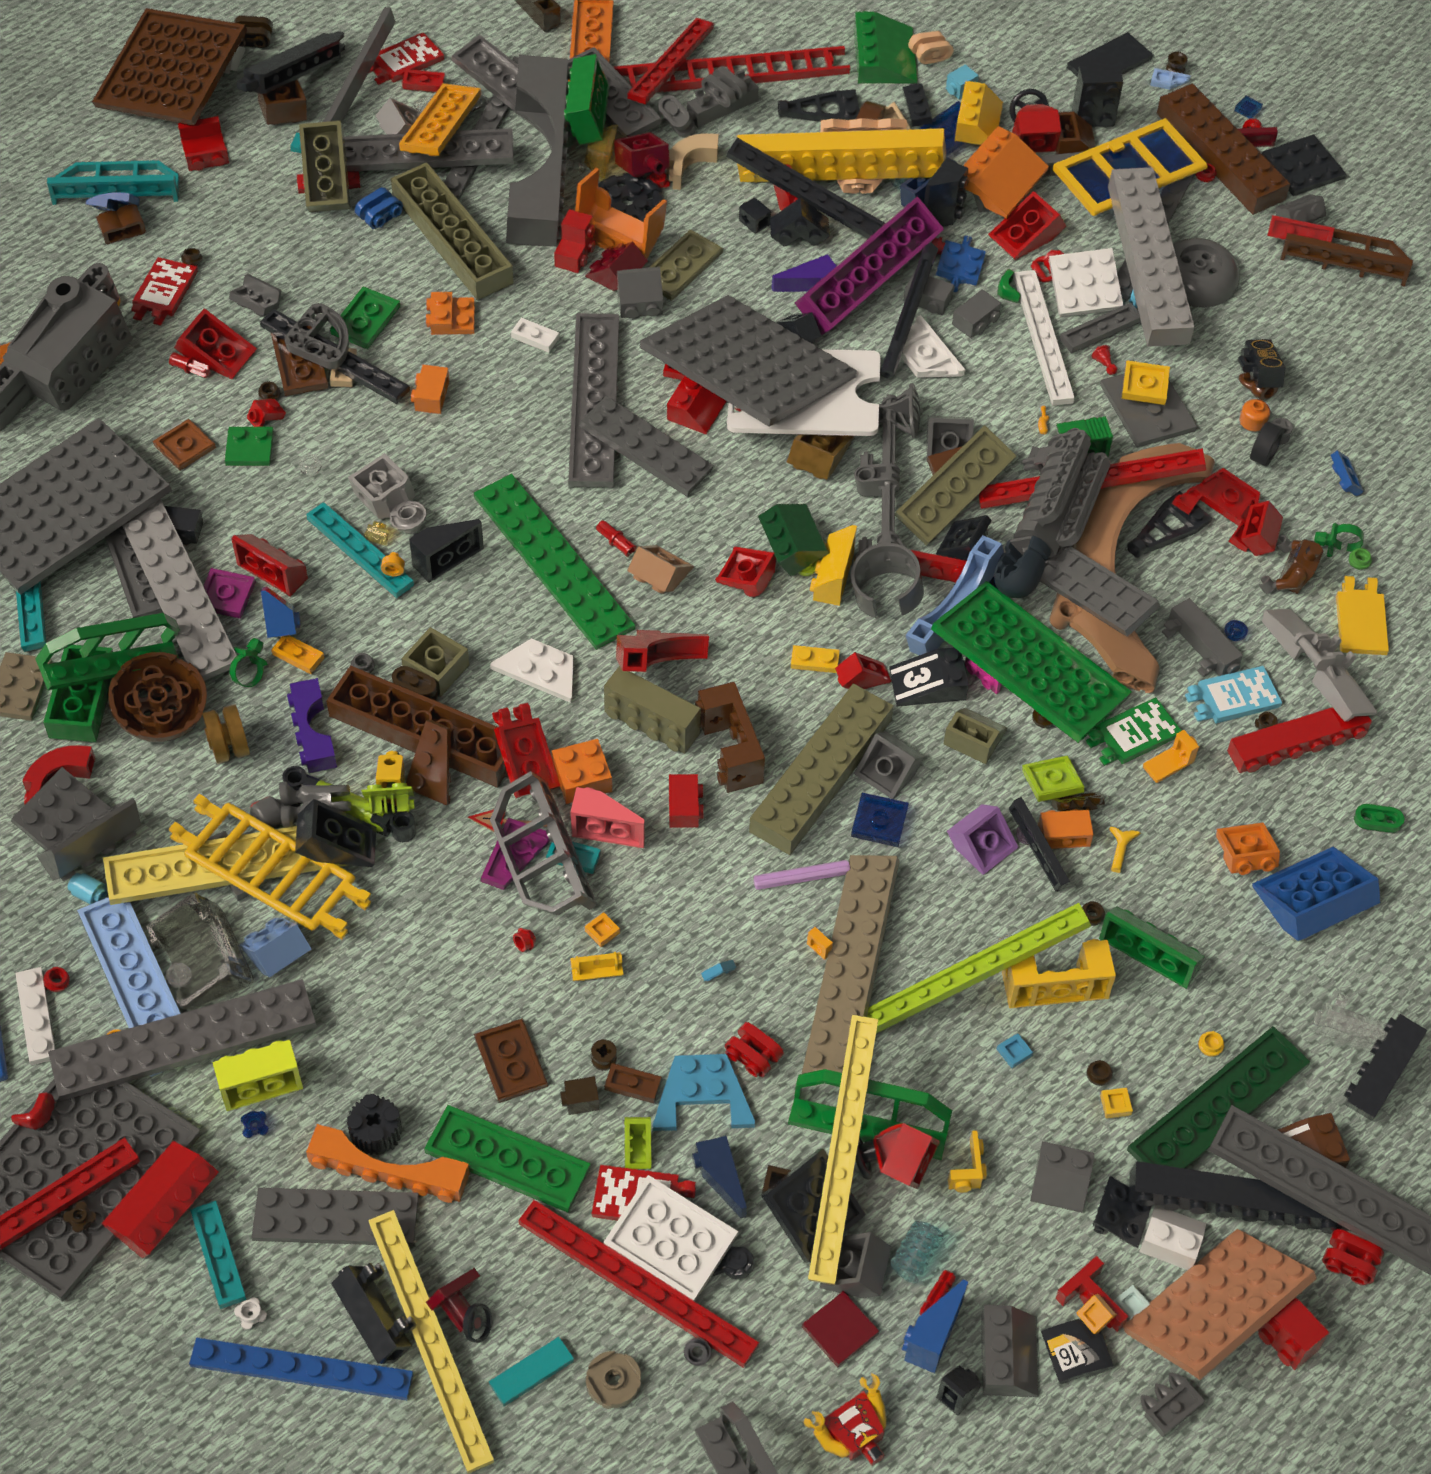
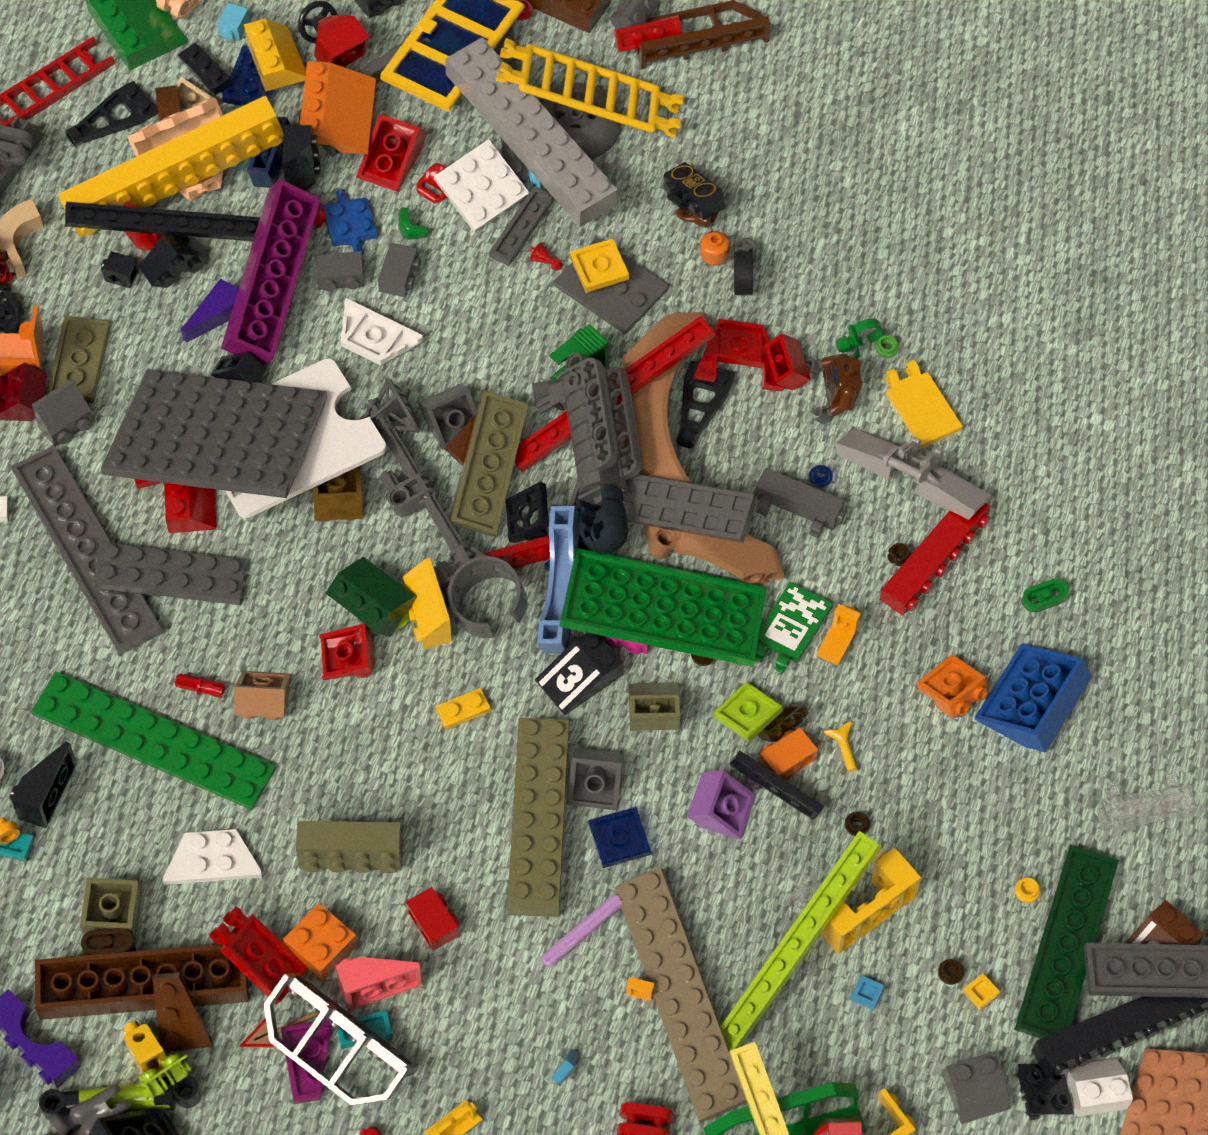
camera: 30 degrees left, 5 degrees up
(363, 658) = (35, 942): dark grey plate -> none
(602, 929) = (436, 1087): light orange plate -> none
(652, 647) = (311, 781): red arch -> none
(741, 763) = (468, 848): reddish brown plate -> none
(862, 672) = (516, 700): red slope -> none
(909, 311) = (336, 300): black piece -> none
(1042, 423) = (524, 351): light orange piece -> none
(1043, 338) = (475, 263): white plate -> none
(1075, 134) = (381, 29): reddish brown slope -> none
(1151, 946) = (927, 827): green slope -> none
(1233, 235) = (522, 79): none -> yellow bar
(1234, 695) = (856, 541): medium azure tile -> none
(1344, 468) = (822, 261): blue plate -> none
(1385, 1066) = (1184, 831): black brick -> none

